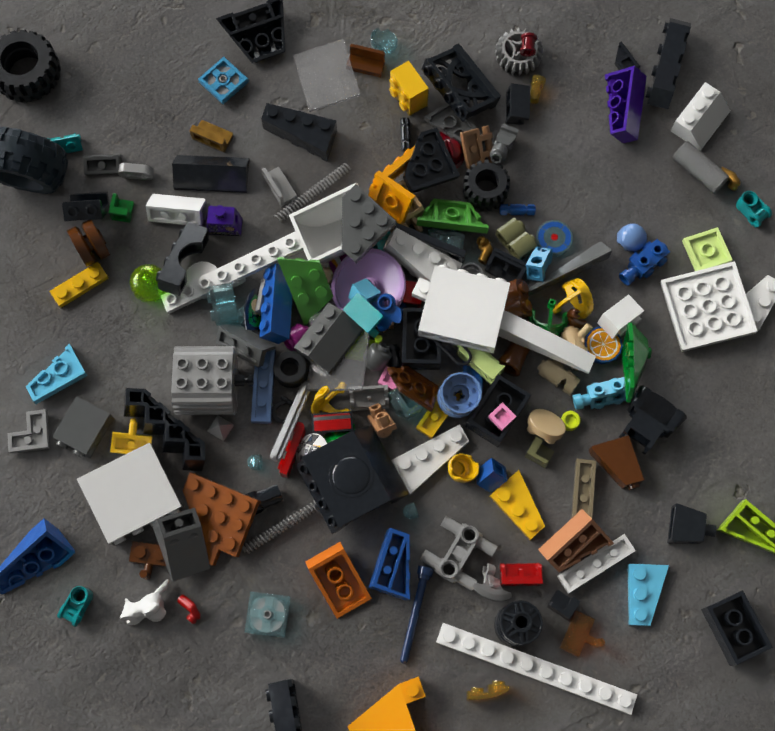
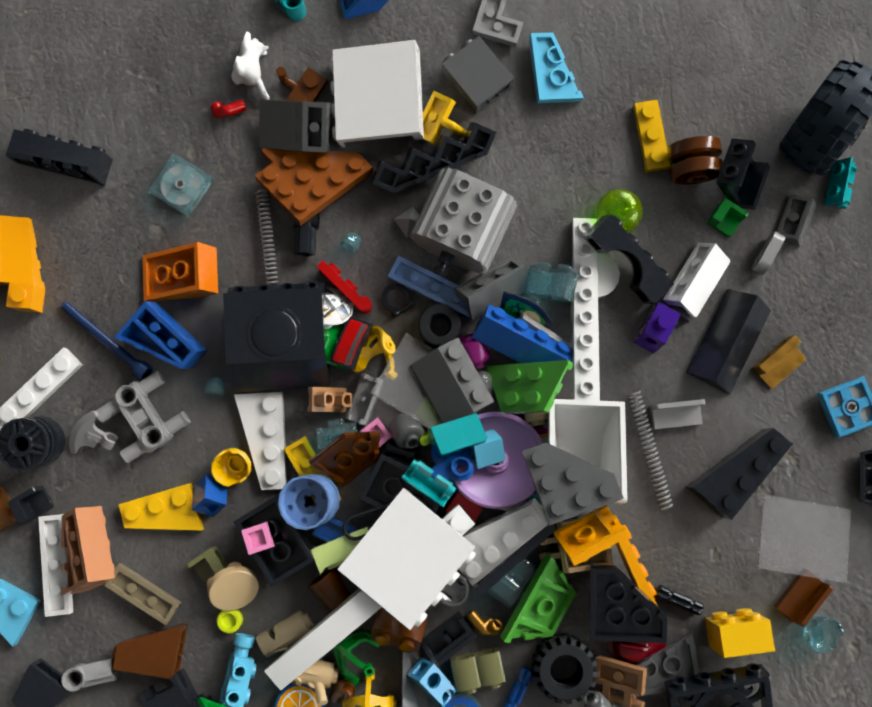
camera: 115 degrees right, 10 degrees up
(290, 423) = (358, 282): light grey axle -> none
(405, 325) = (420, 477): none -> teal hinge
(521, 574) = (86, 474): red hinge -> none
(655, 495) = (90, 673): none -> light grey piece

